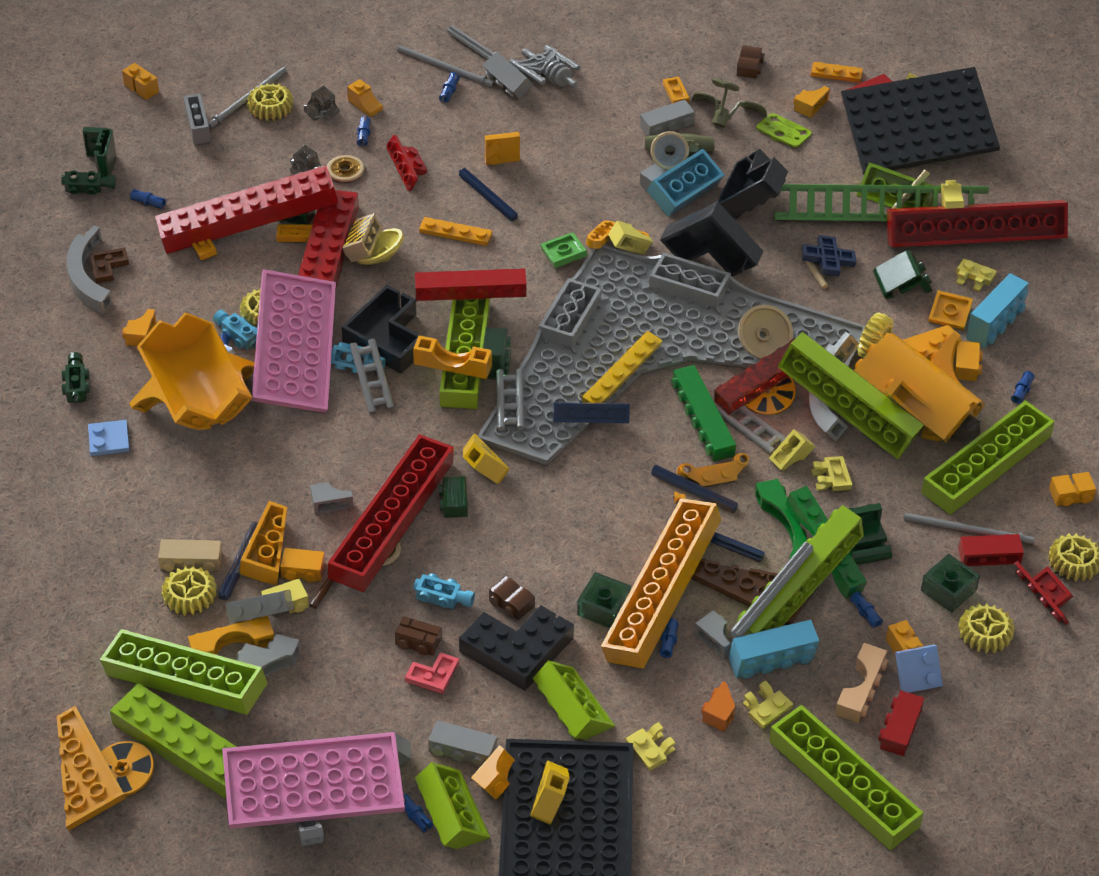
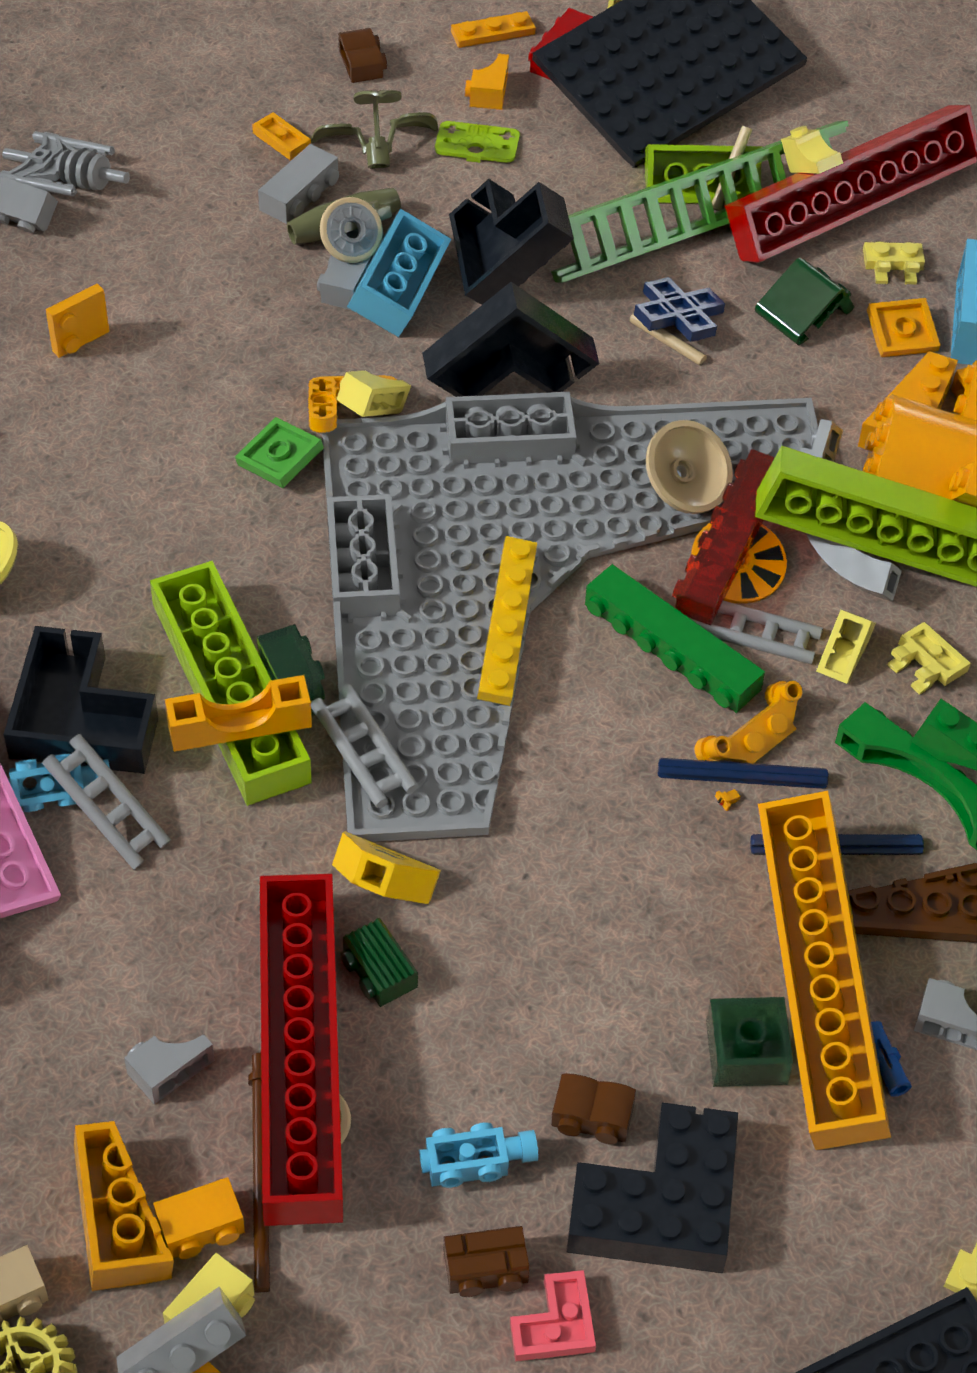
camera: 30 degrees left, 5 degrees up
(233, 574) = (77, 1265): dark blue axle -> none
(455, 231) = (80, 487): light orange plate -> none
(470, 284) = (182, 572): red brick -> none
(488, 194) = (95, 405): dark blue axle -> none
(572, 700) = (818, 1257): lime slope -> none
(591, 412) = (510, 713): dark blue plate -> none
(874, 331) = (843, 405): light yellow gear -> none

